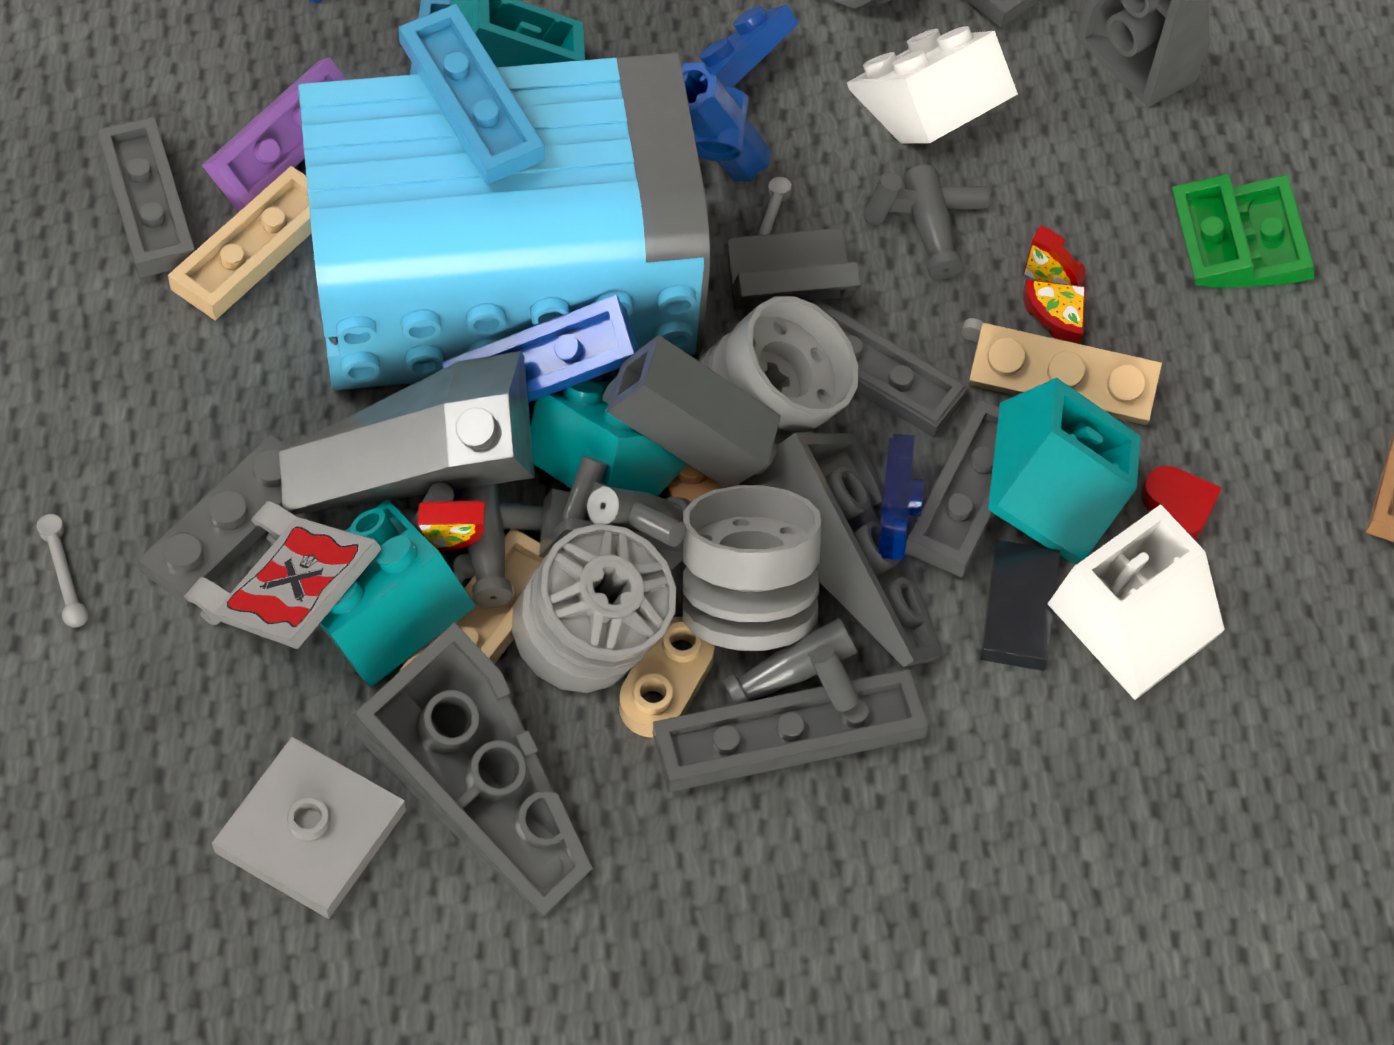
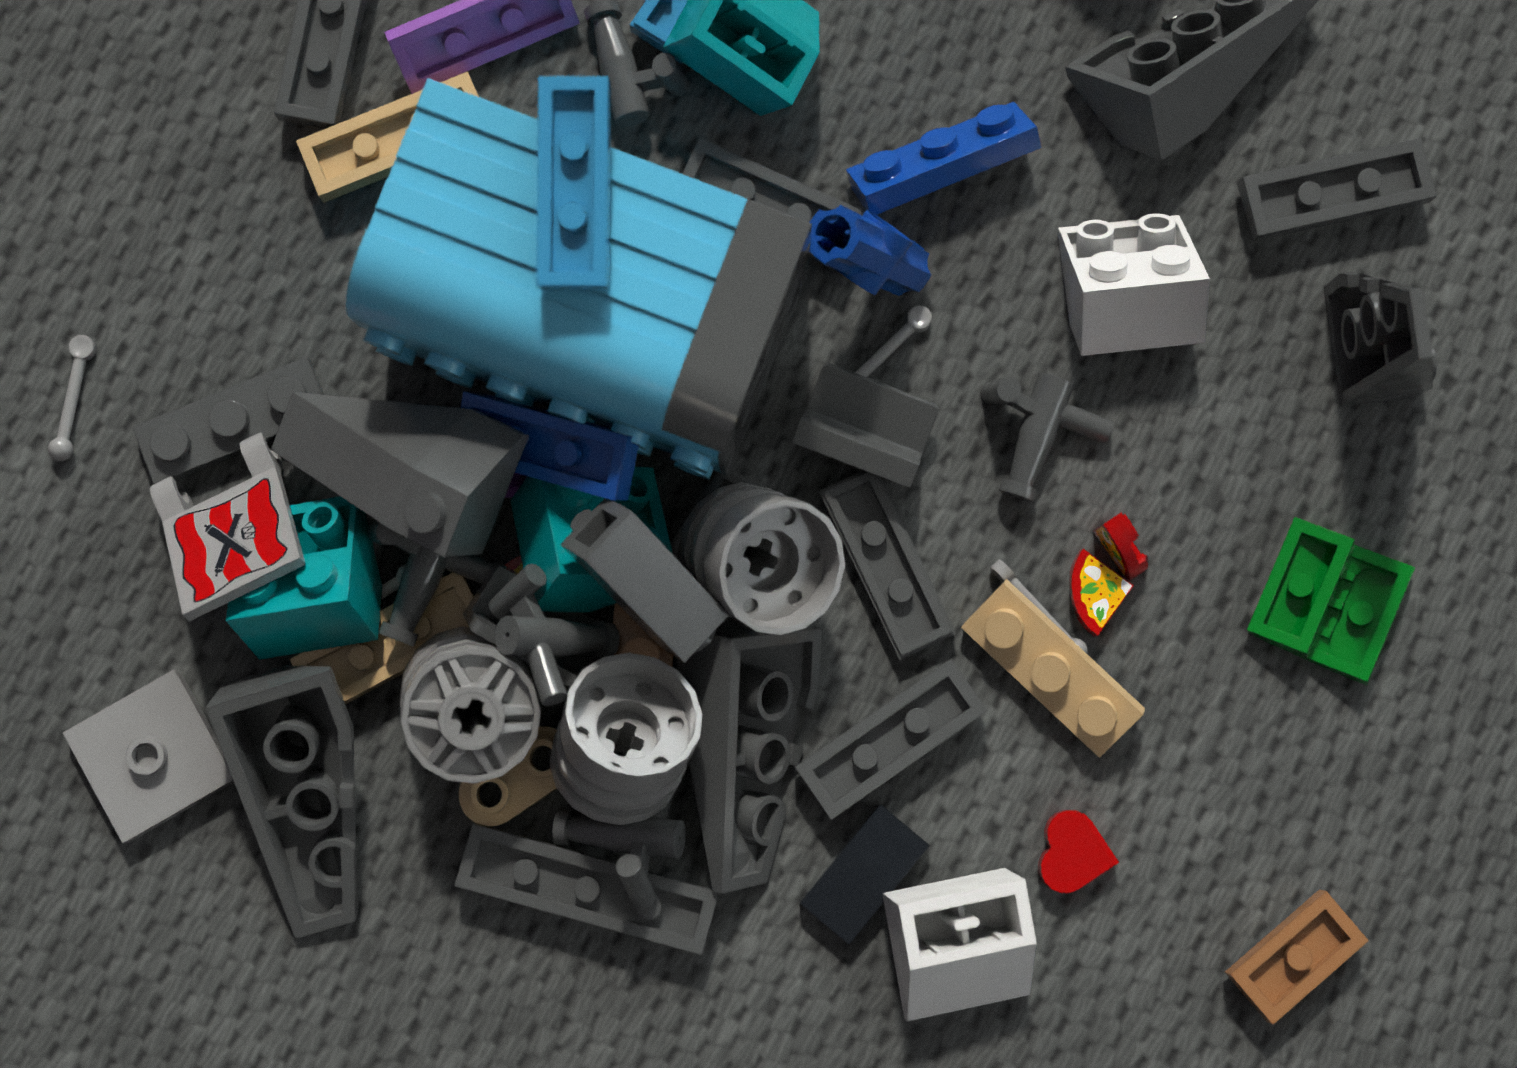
camera: 30 degrees right, 25 degrees up
(452, 523) = (380, 565): tile -> none
(900, 498) = (810, 727): clear blue plate -> none
(1061, 468) = (966, 784): teal slope -> none

